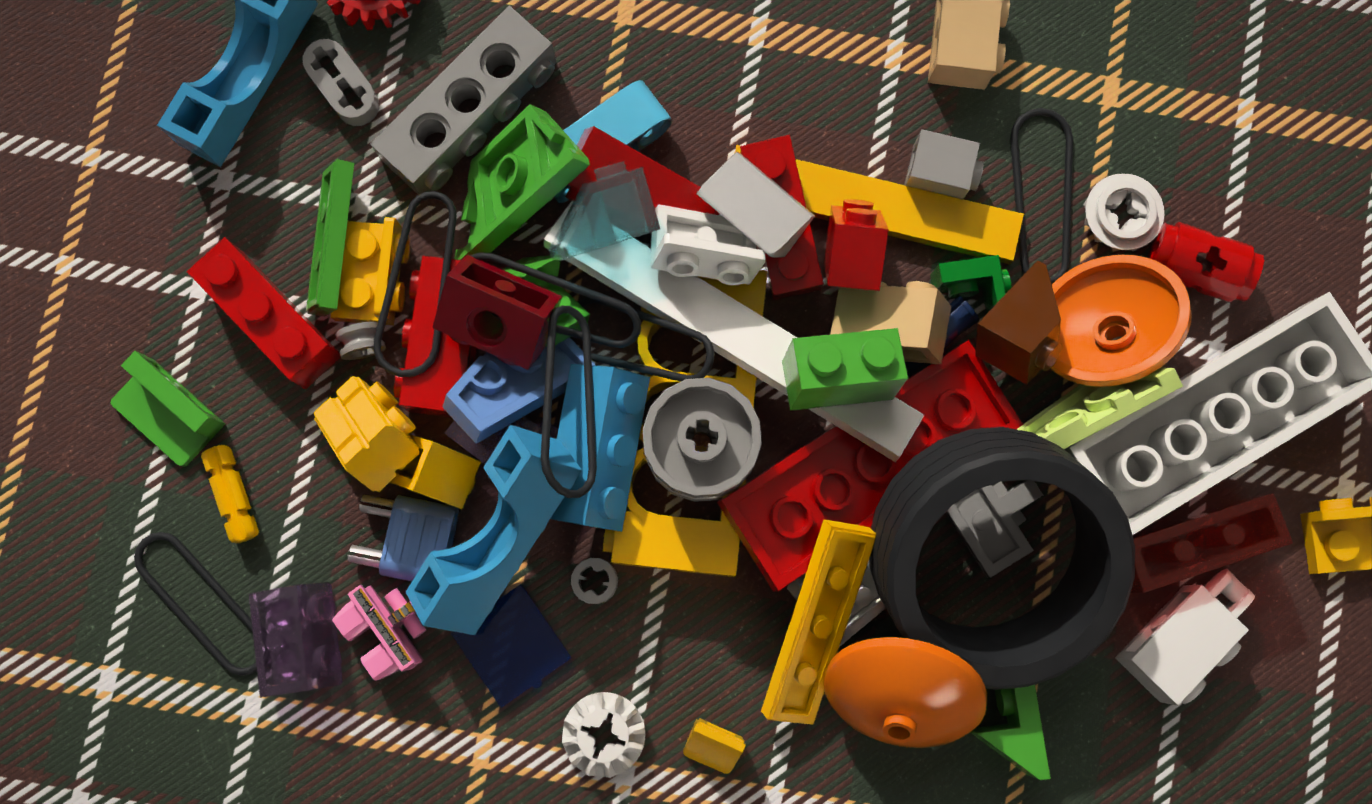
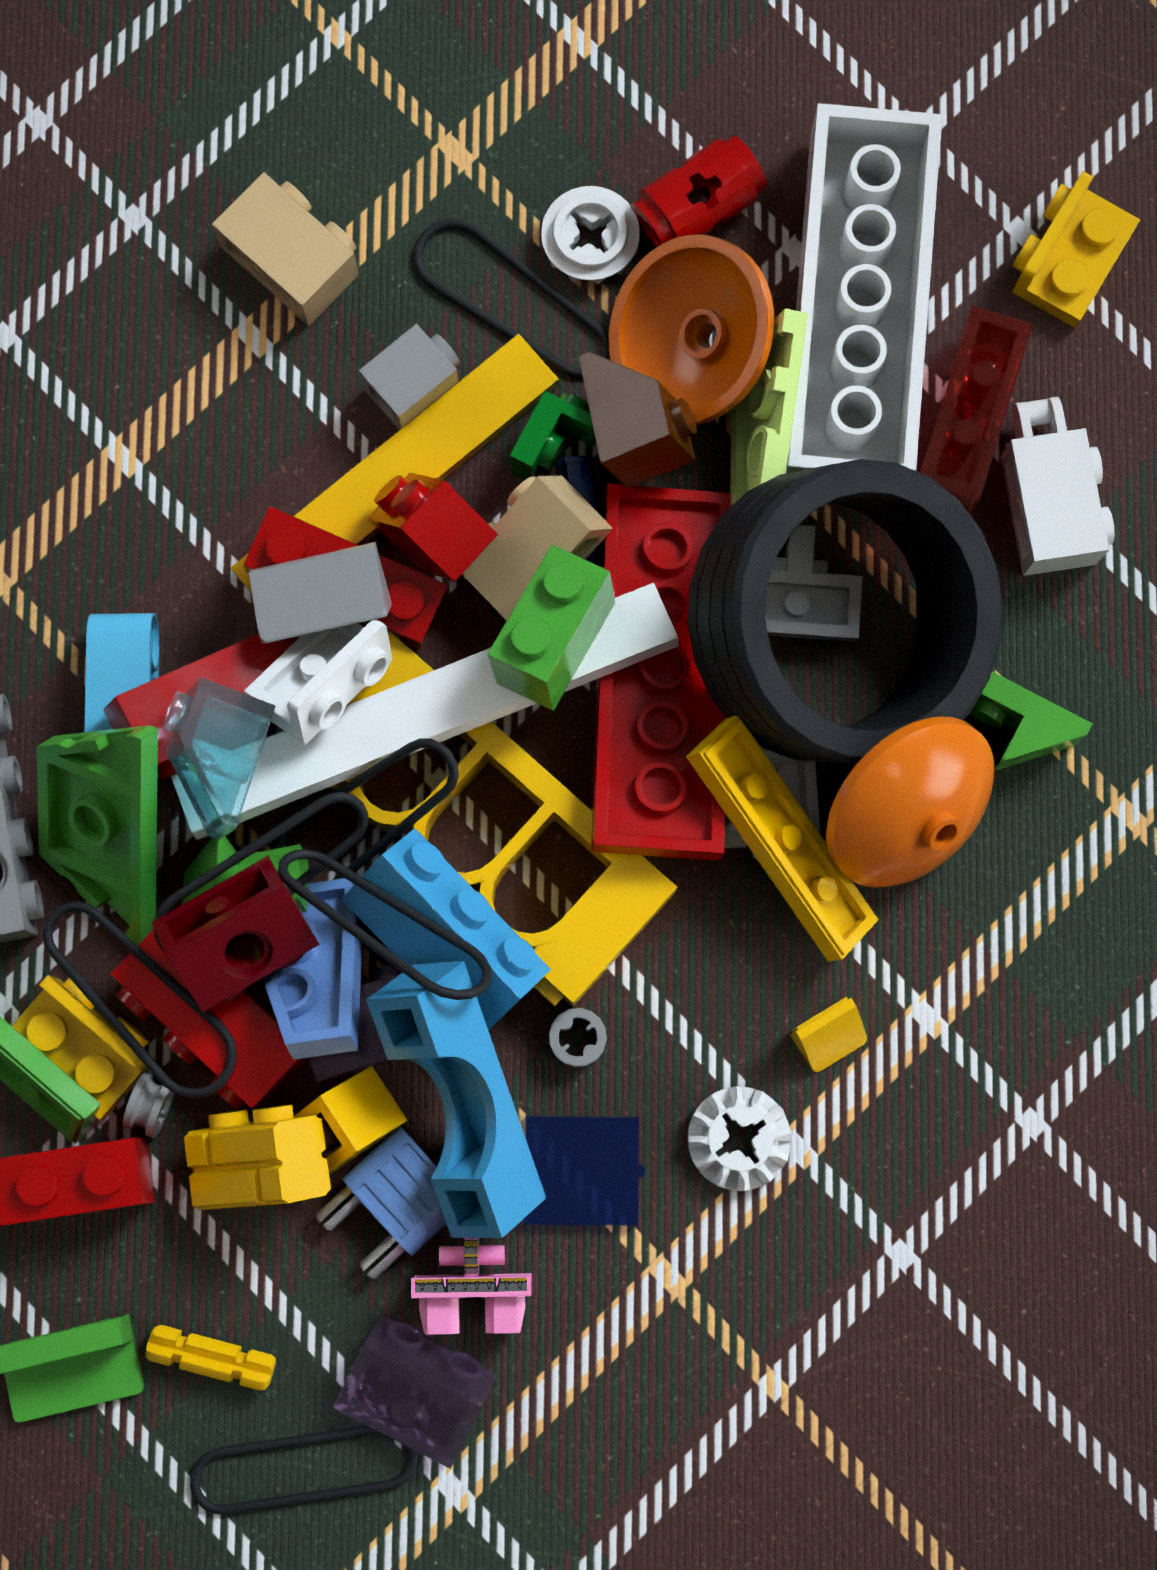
camera: 55 degrees left, 0 degrees up
(707, 409) = (511, 782): light grey wheel -> none

